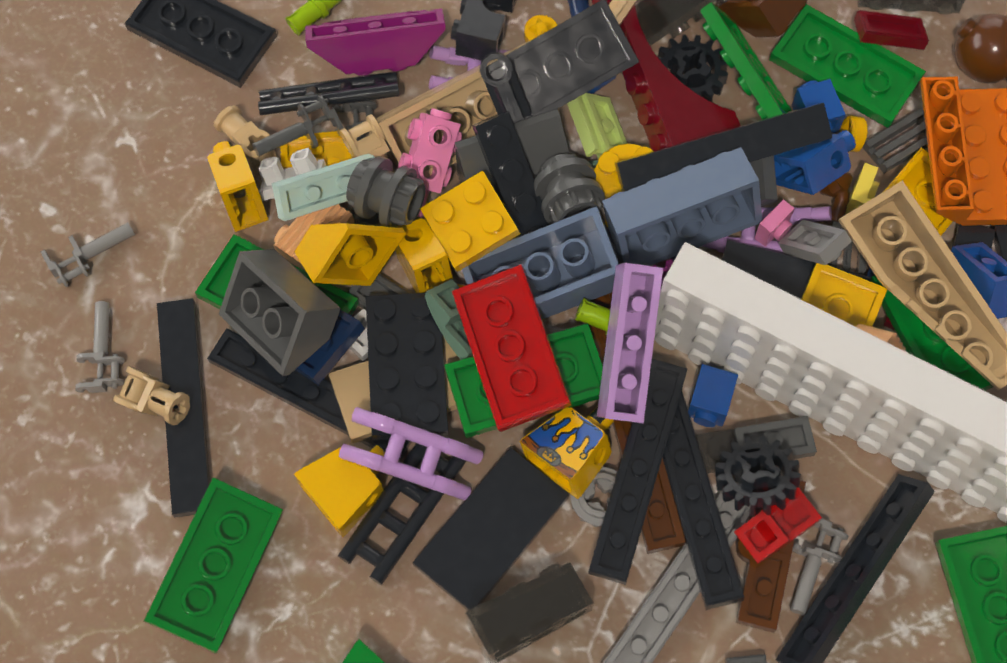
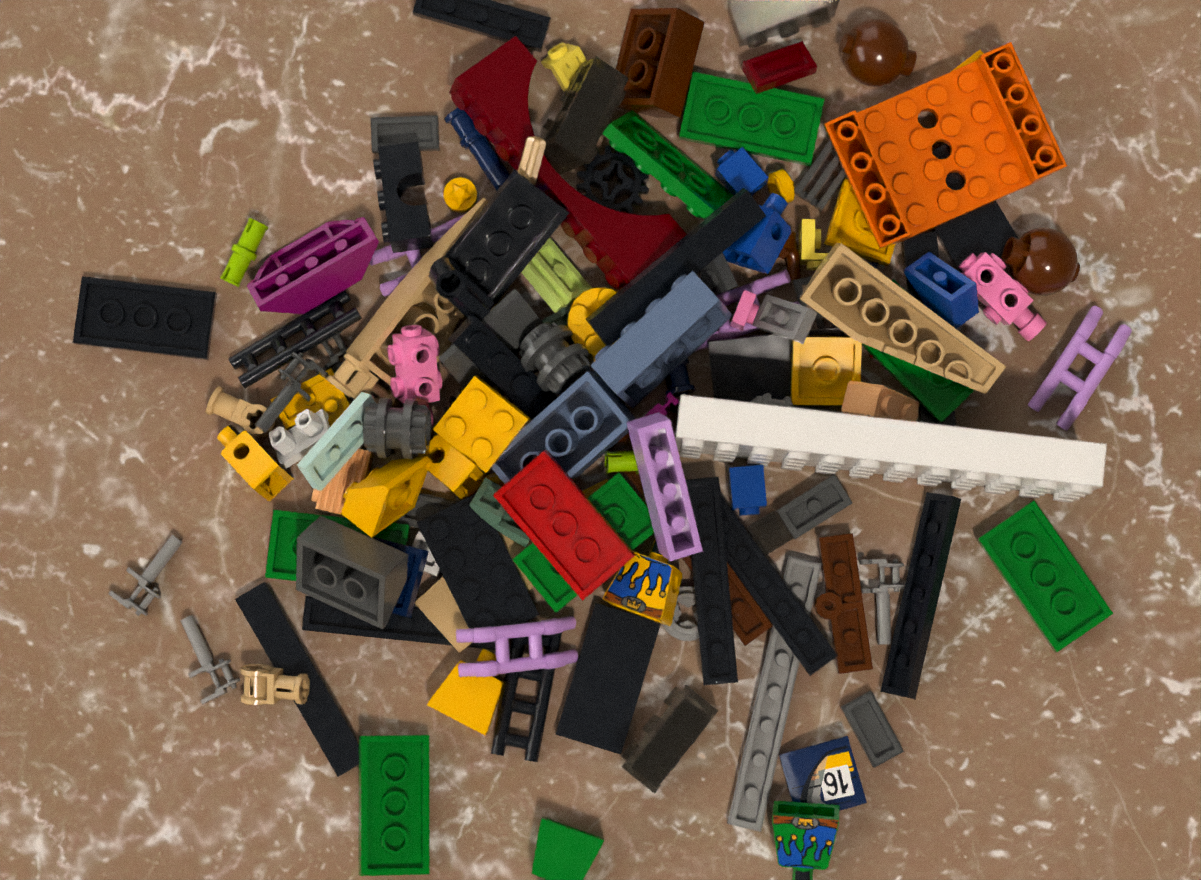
camera: 20 degrees left, 15 degrees up
(757, 475) = (811, 534): black gear -> none
(770, 533) = (843, 582): red slope -> none

